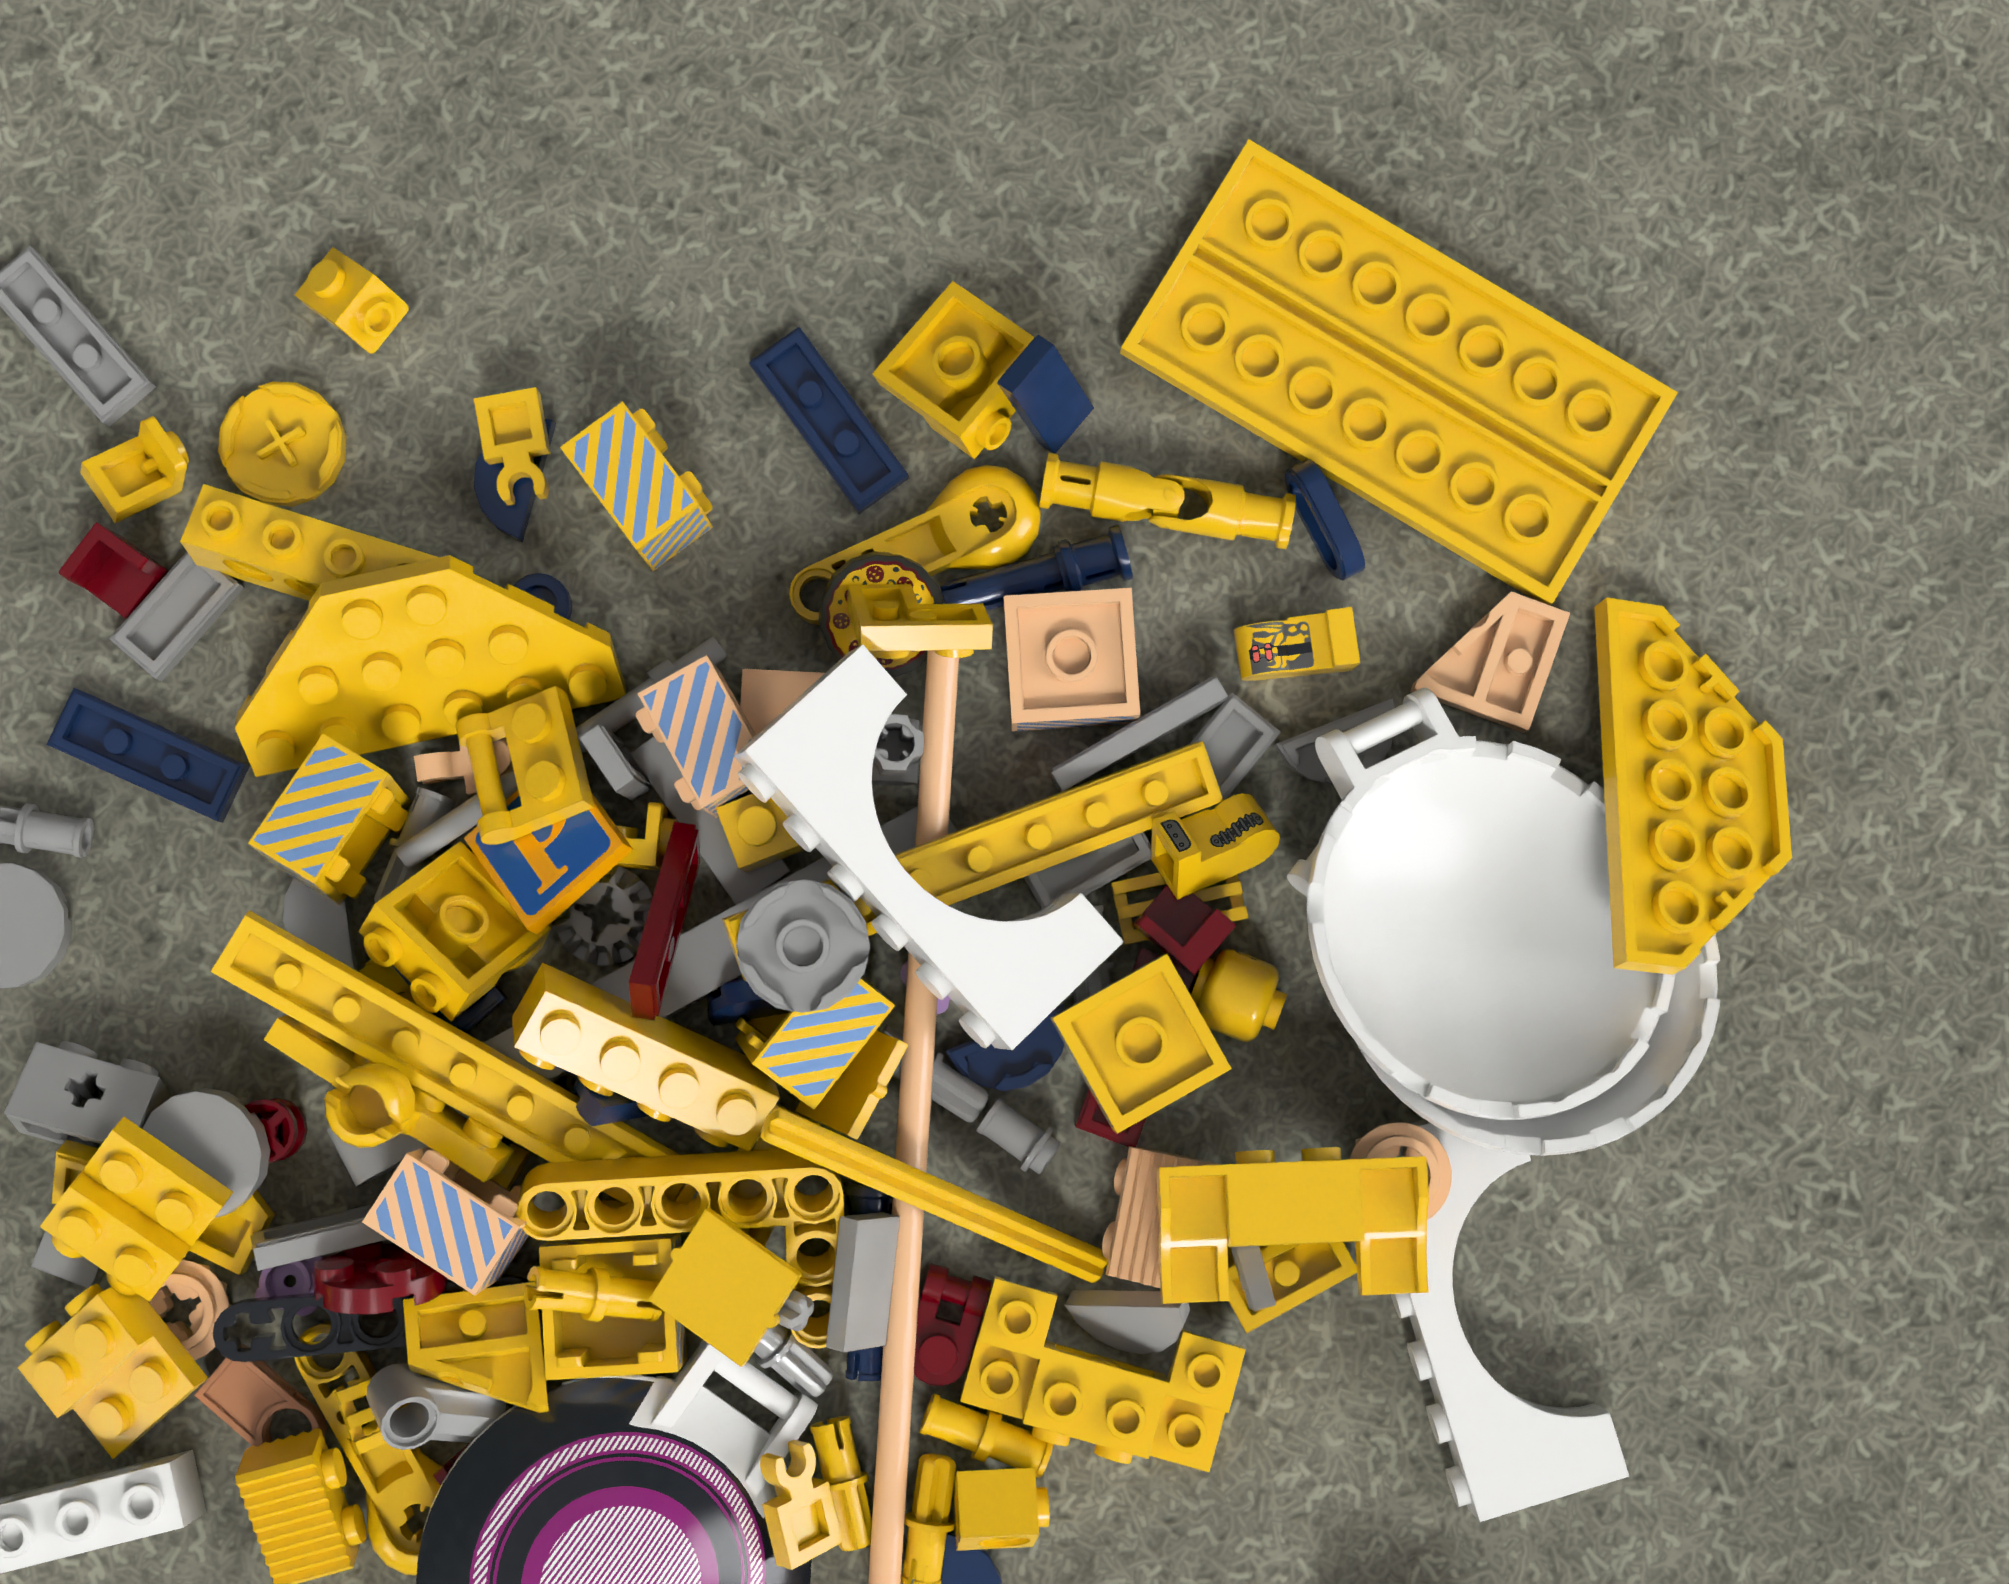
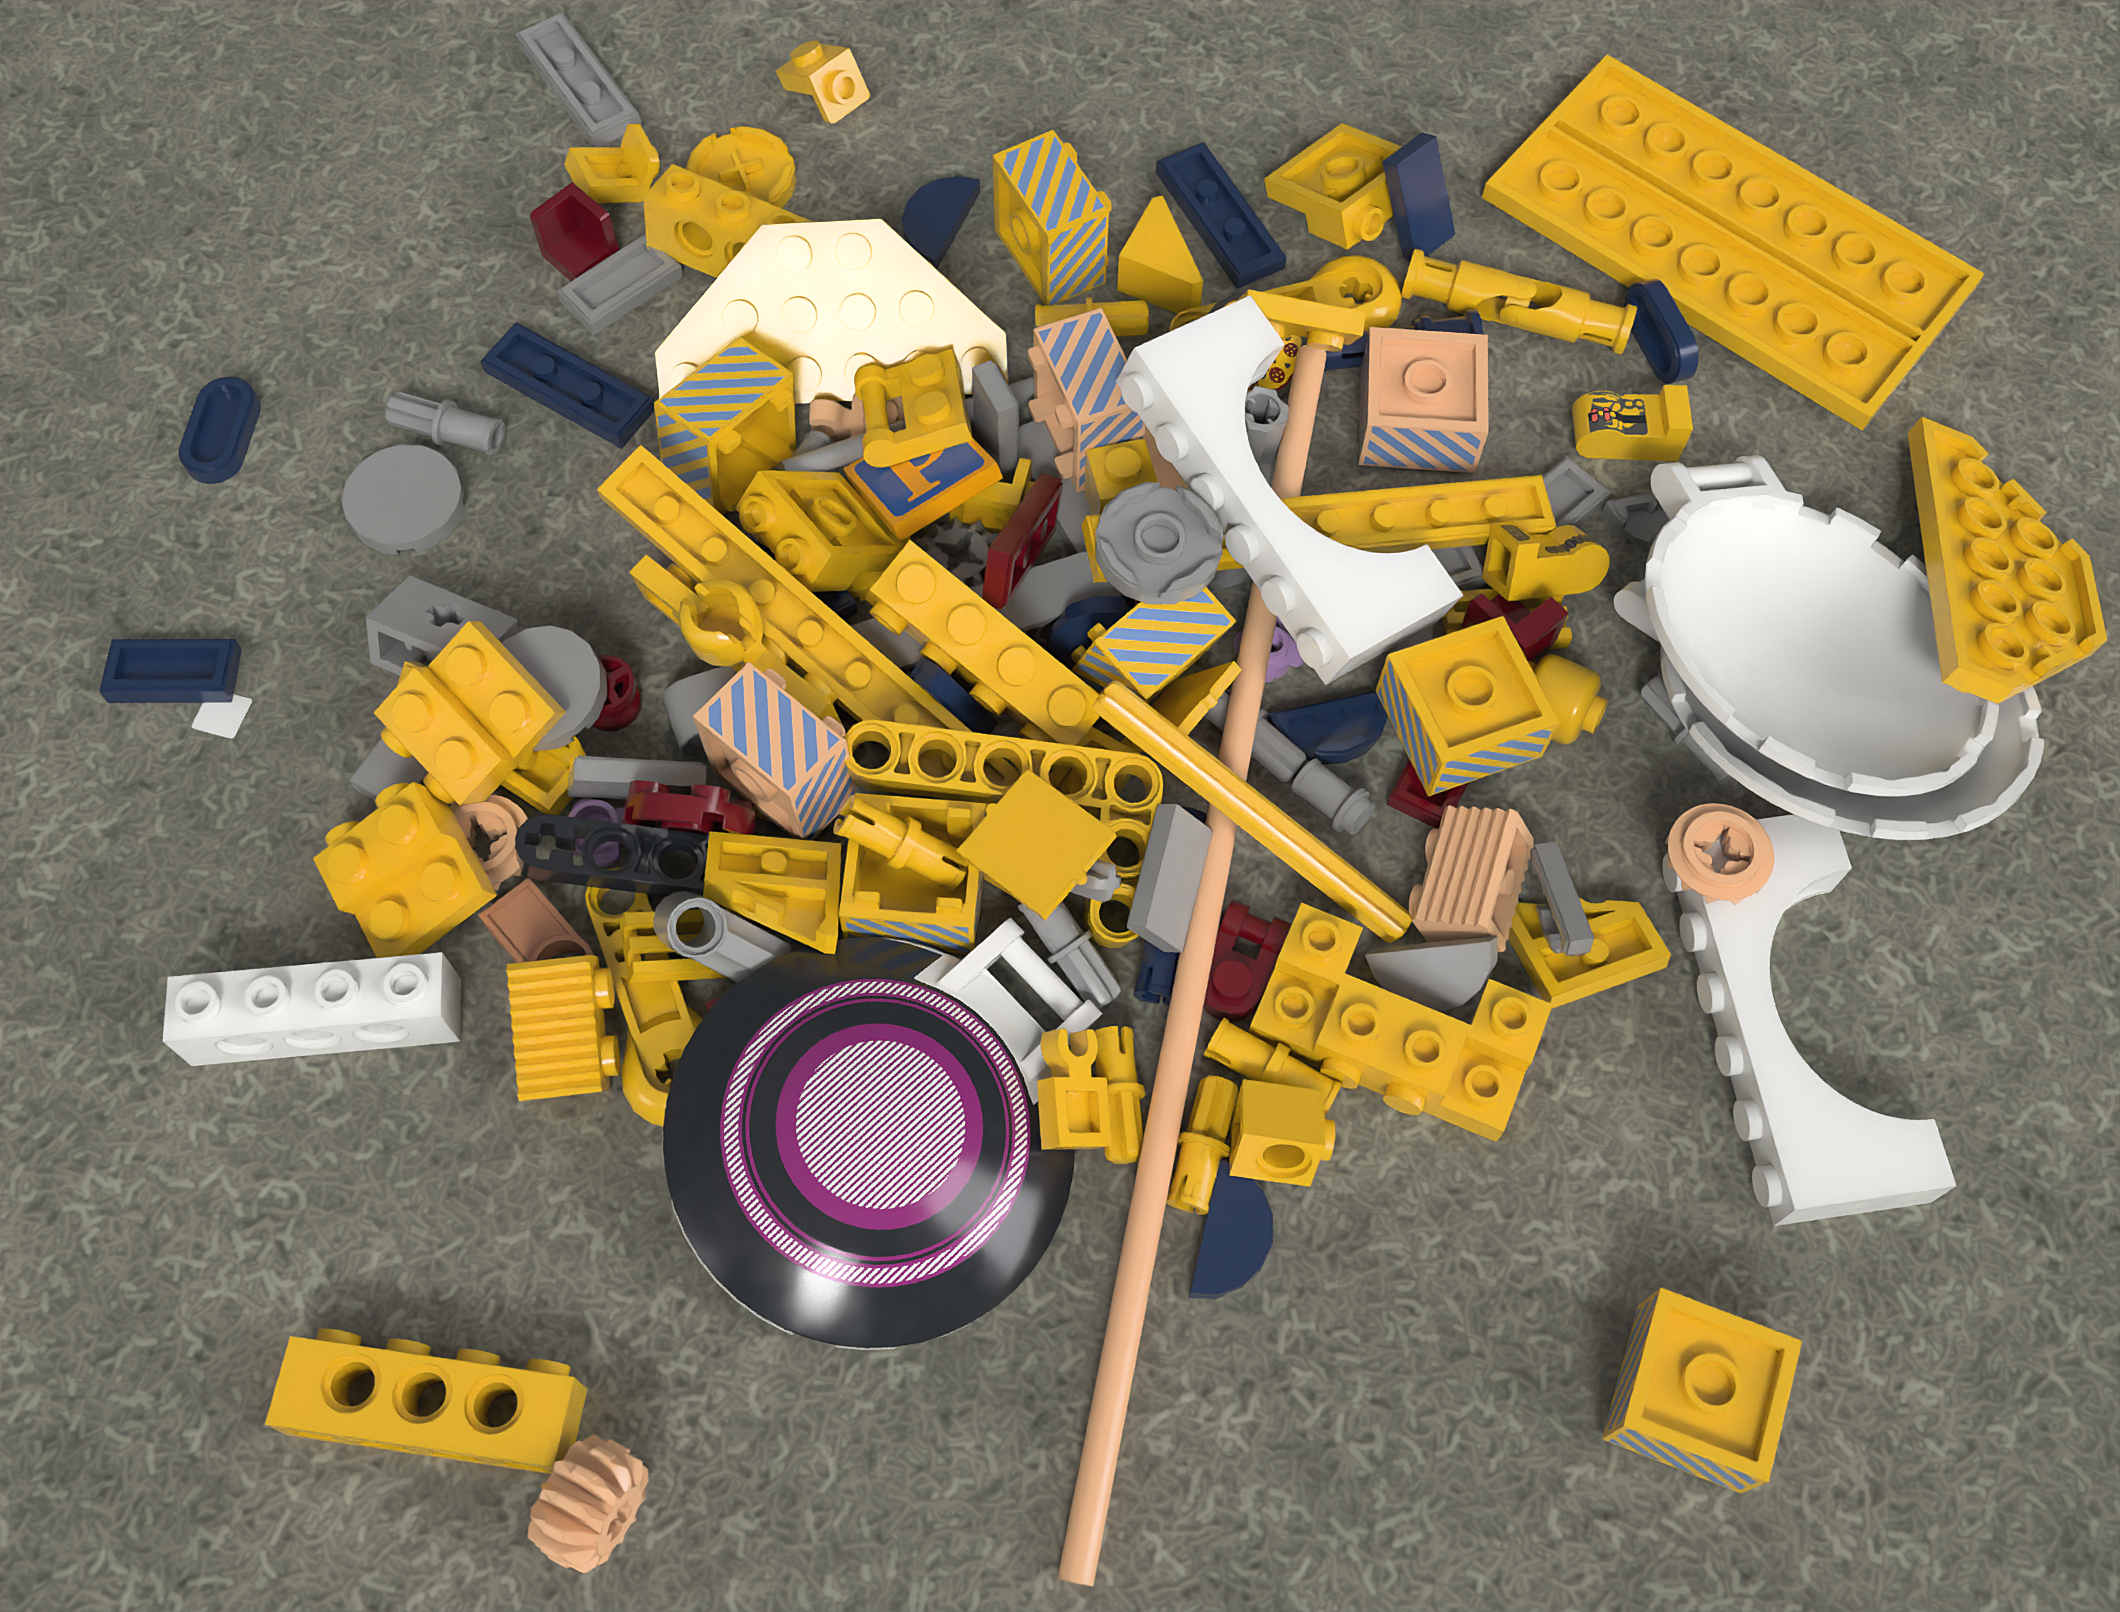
camera: 10 degrees right, 20 degrees down
(512, 434) = (946, 178): yellow plate -> none
(700, 593) = (1124, 317): none -> yellow axle
(763, 508) = (1158, 263): none -> yellow slope
(1138, 735) = (1517, 457): light grey tile -> none
(1287, 1203) = (1621, 846): yellow bracket -> none
(1500, 662) = (1826, 457): light nougat wing -> none

